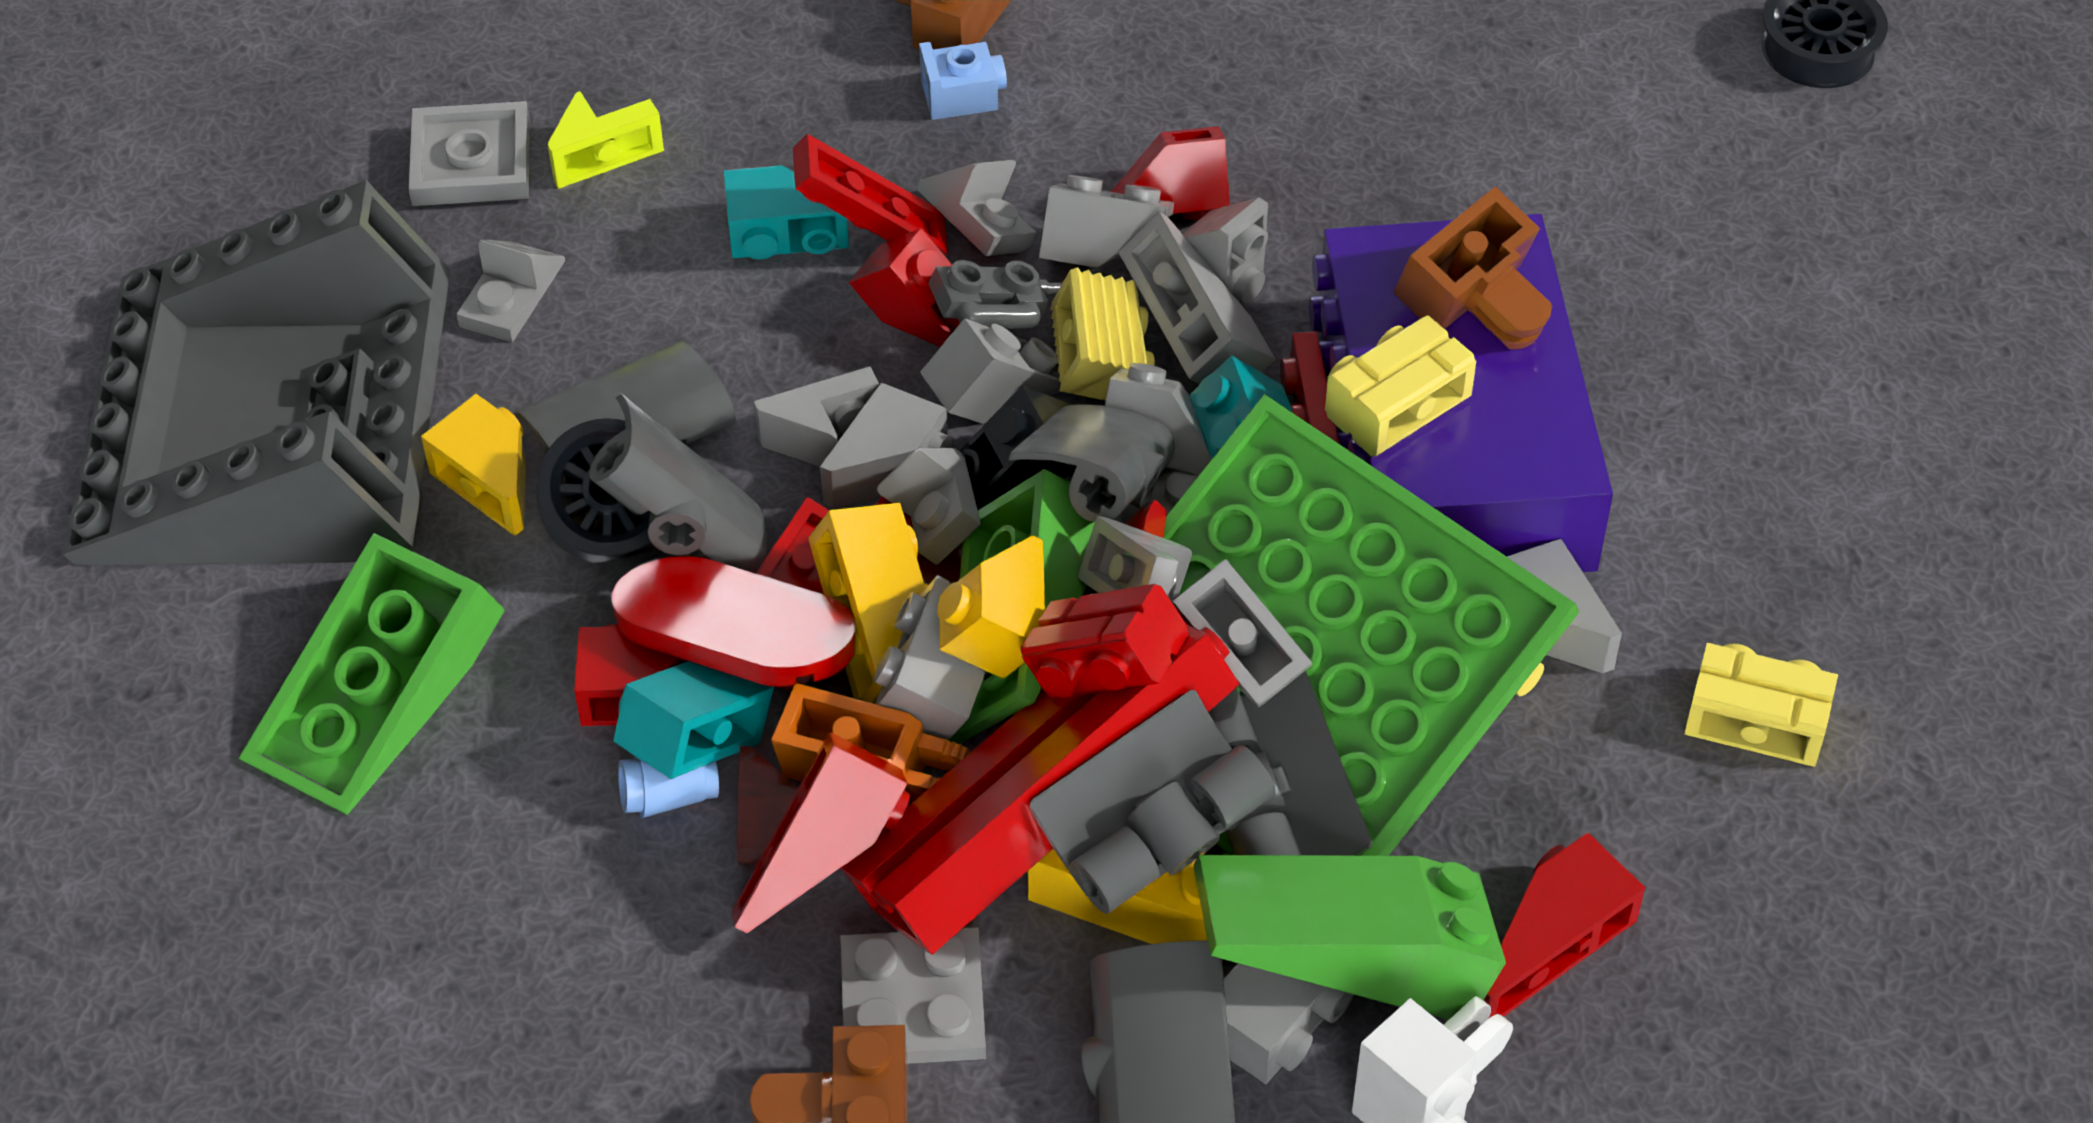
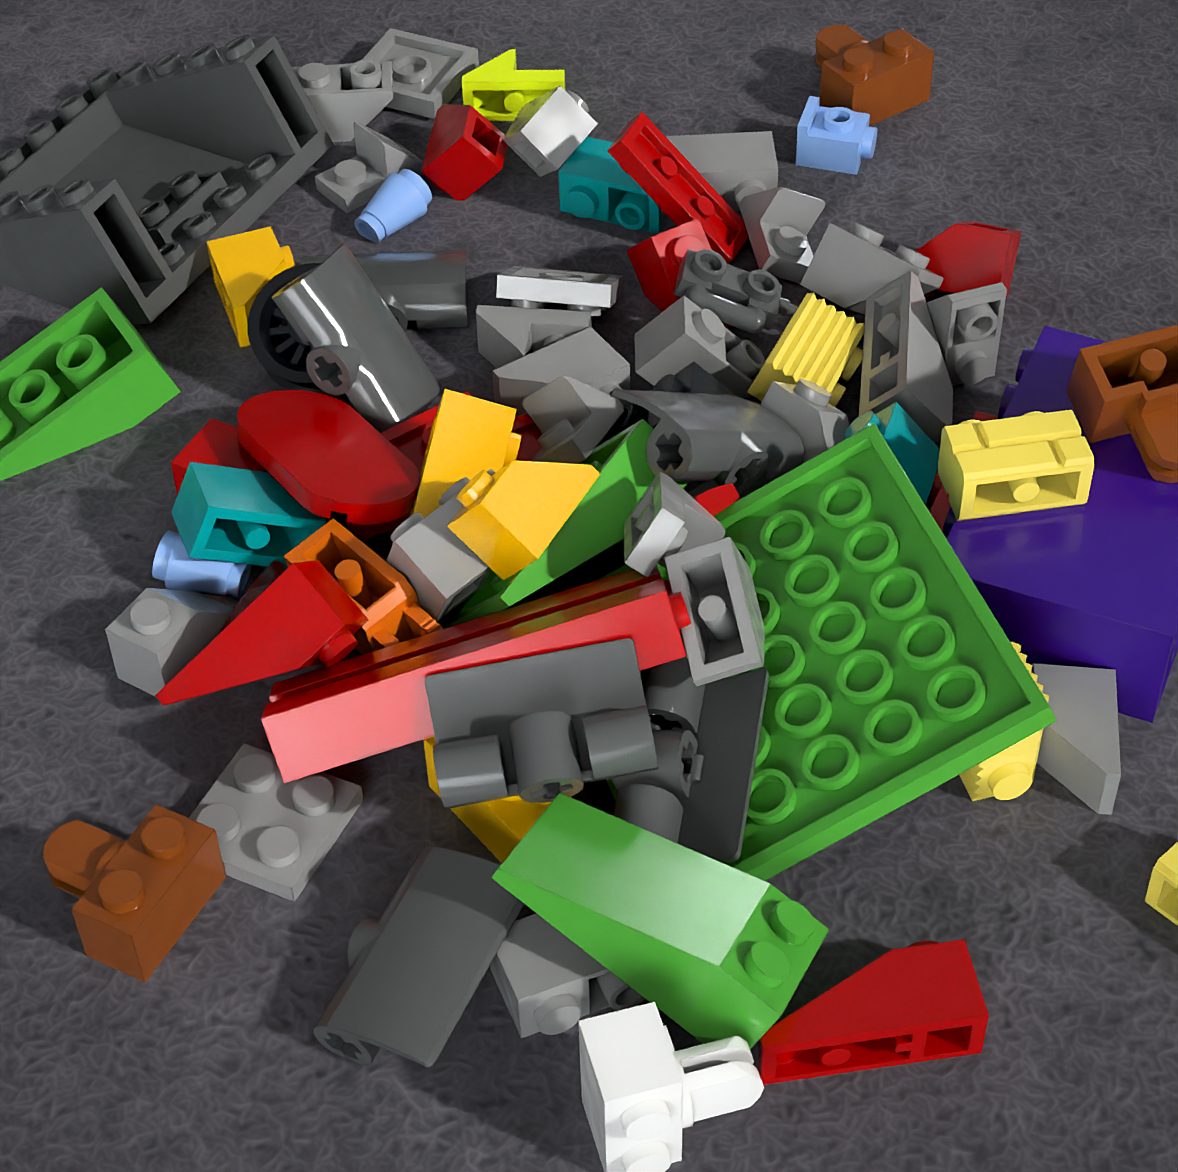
camera: 30 degrees right, 5 degrees down
(442, 203) = (347, 93): none -> light grey slope
(568, 316) = (395, 205): none -> light blue cone
(602, 228) = (463, 151): none -> red slope
(686, 176) = (550, 129): none -> slope
(695, 868) = (162, 635): none -> light grey slope
(814, 348) = (542, 287): none -> plate
(893, 143) = (732, 162): none -> light grey brick
(1105, 641) = (579, 567): red brick -> none

